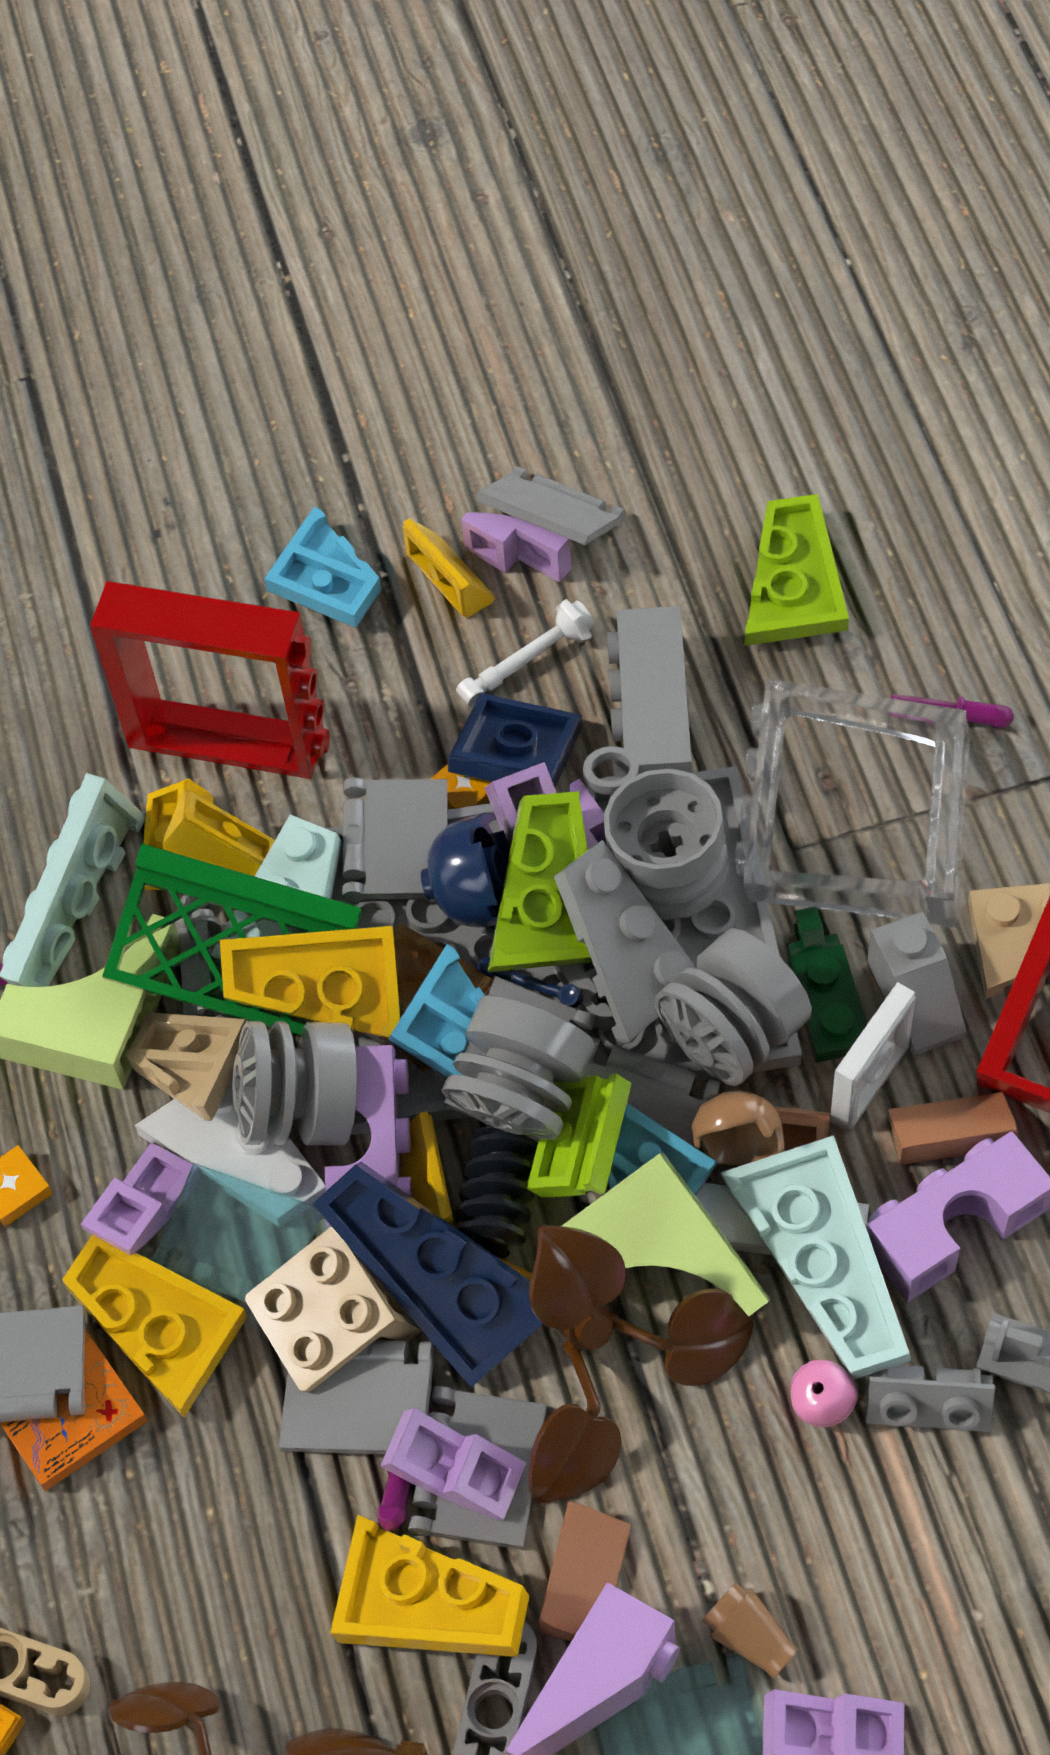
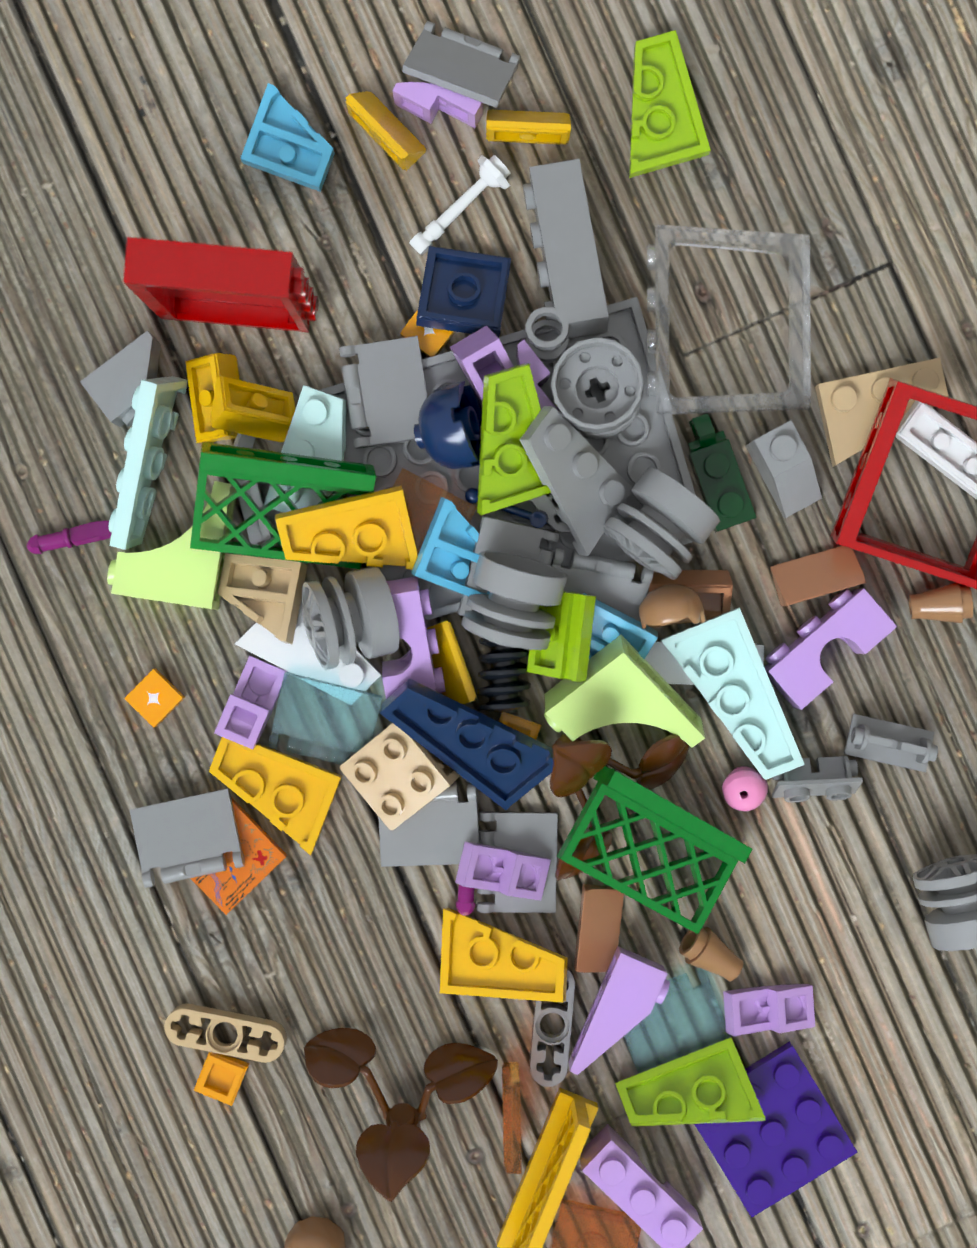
camera: 15 degrees left, 30 degrees up
(46, 795) = (117, 379): none -> light grey slope
(623, 582) = (528, 127): none -> yellow slope
(712, 1407) = (670, 817): none -> green fence
(872, 1057) = (763, 541): white tile -> none
(976, 712) = (800, 221): magenta piece -> none

